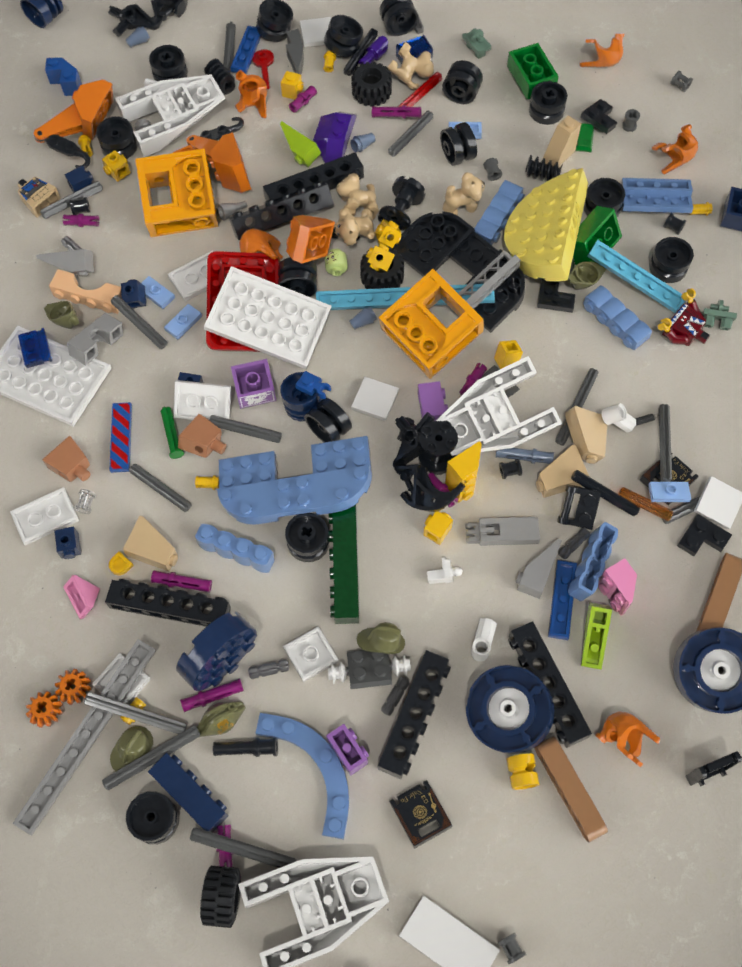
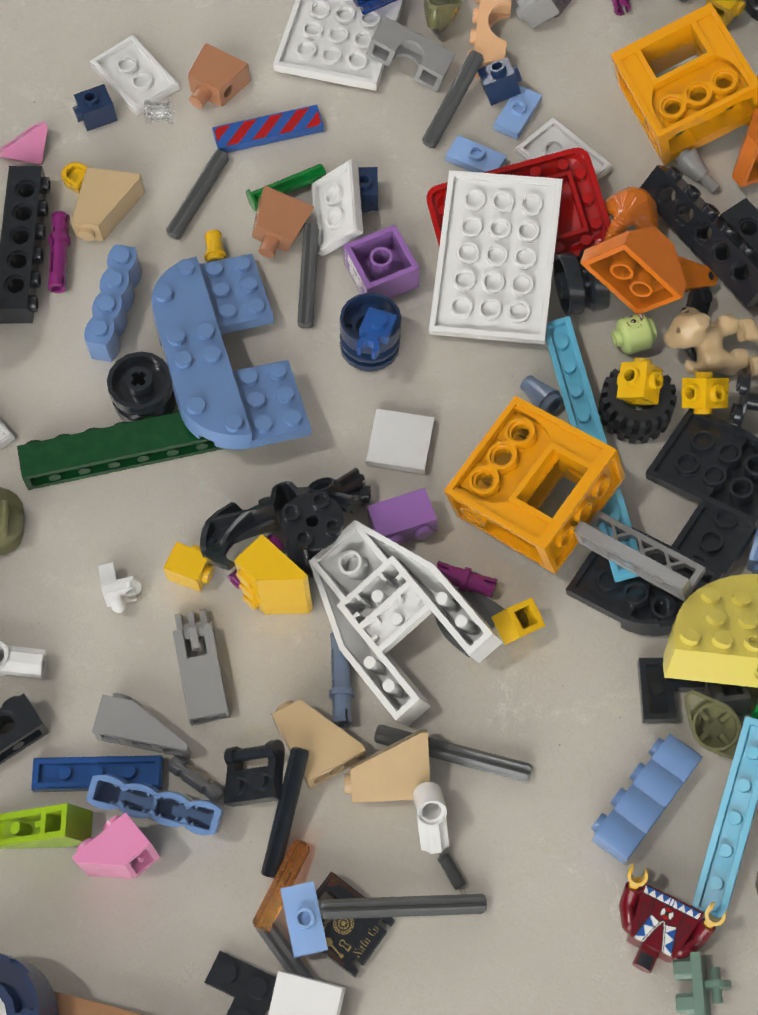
camera: 80 degrees right, 0 degrees up
(328, 421) = (332, 374): black wheel -> none
(510, 468) = (310, 659): black bush -> none

